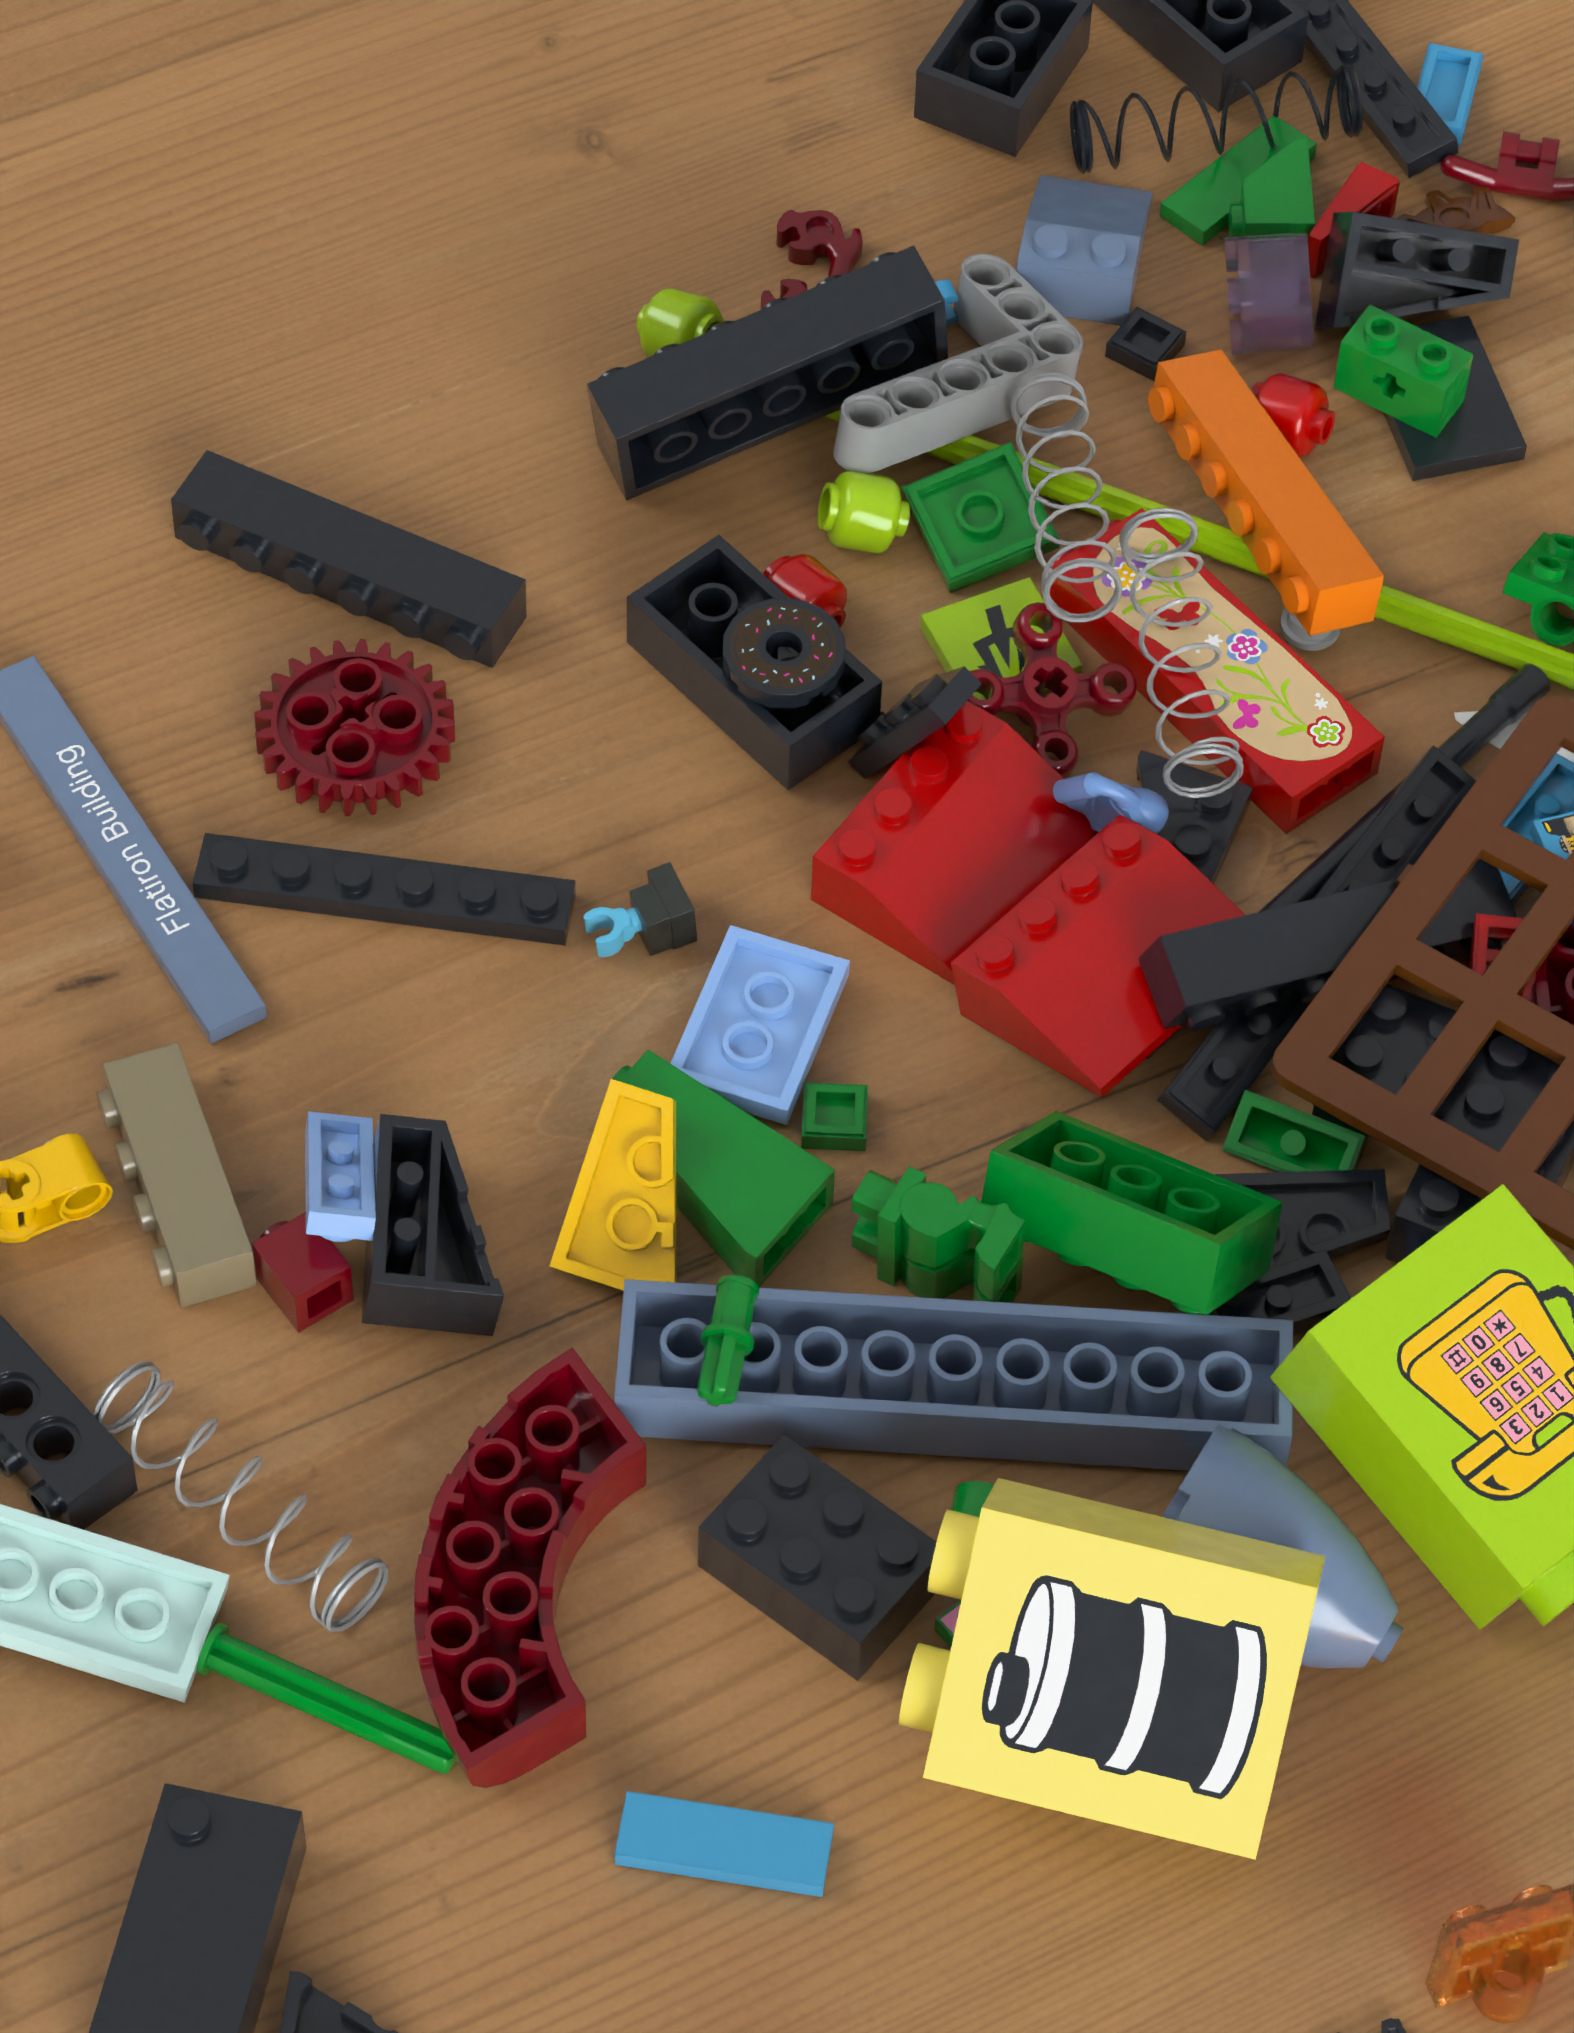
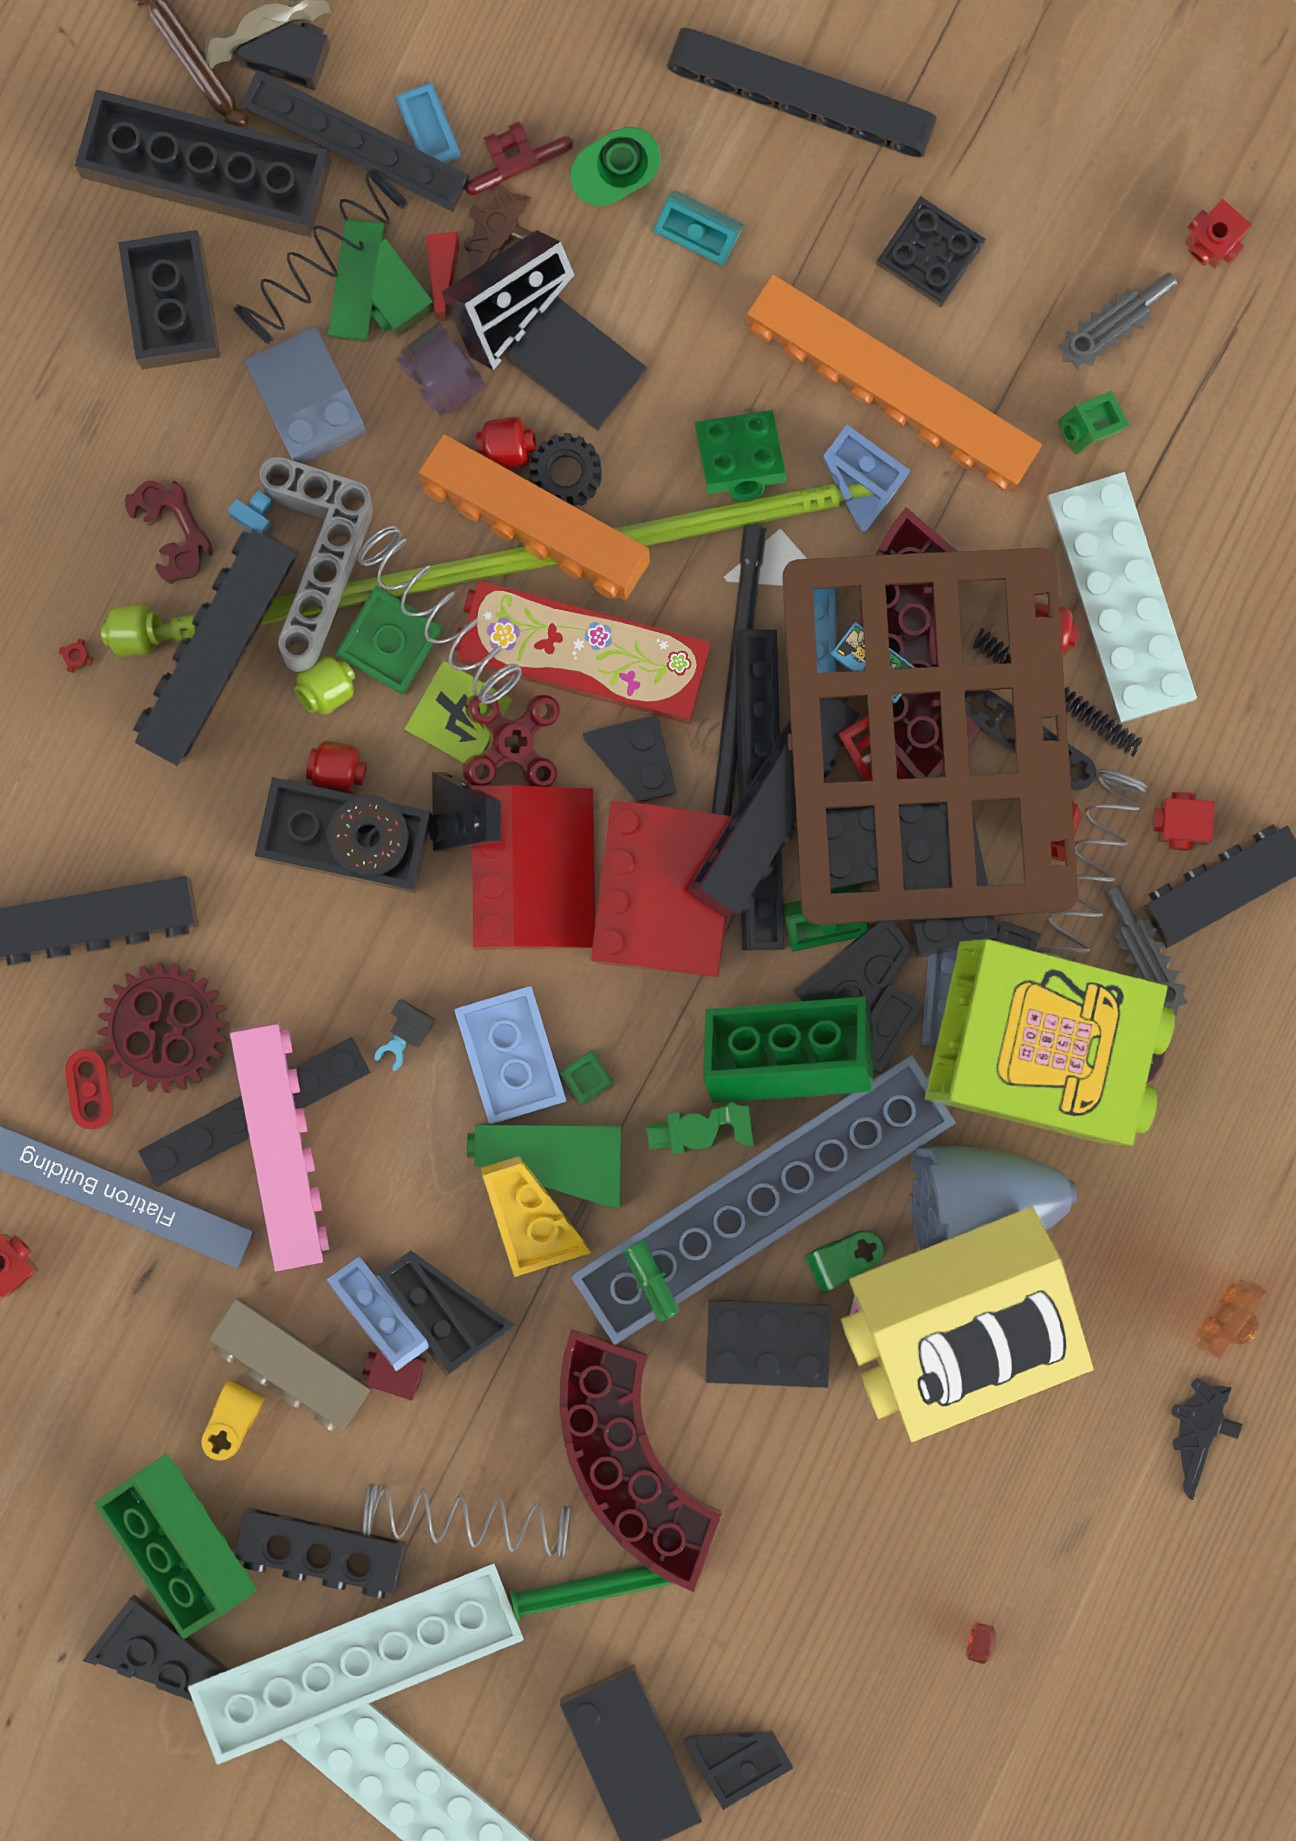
camera: 35 degrees left, 30 degrees up
(202, 739) = (88, 1090): none -> red plate
(380, 917) = (277, 1145): none -> bright pink brick
(592, 324) = (75, 655): none -> red piece
(724, 1844) = (828, 1521): dark azure tile -> none
(1106, 799) = (604, 786): medium blue piece -> none
(1144, 342) = (388, 442): black tile -> none
(1203, 746) = (508, 610): light grey piece -> none
(1356, 463) = (567, 447): none -> black tyre
(1403, 370) = (553, 376): green brick -> none

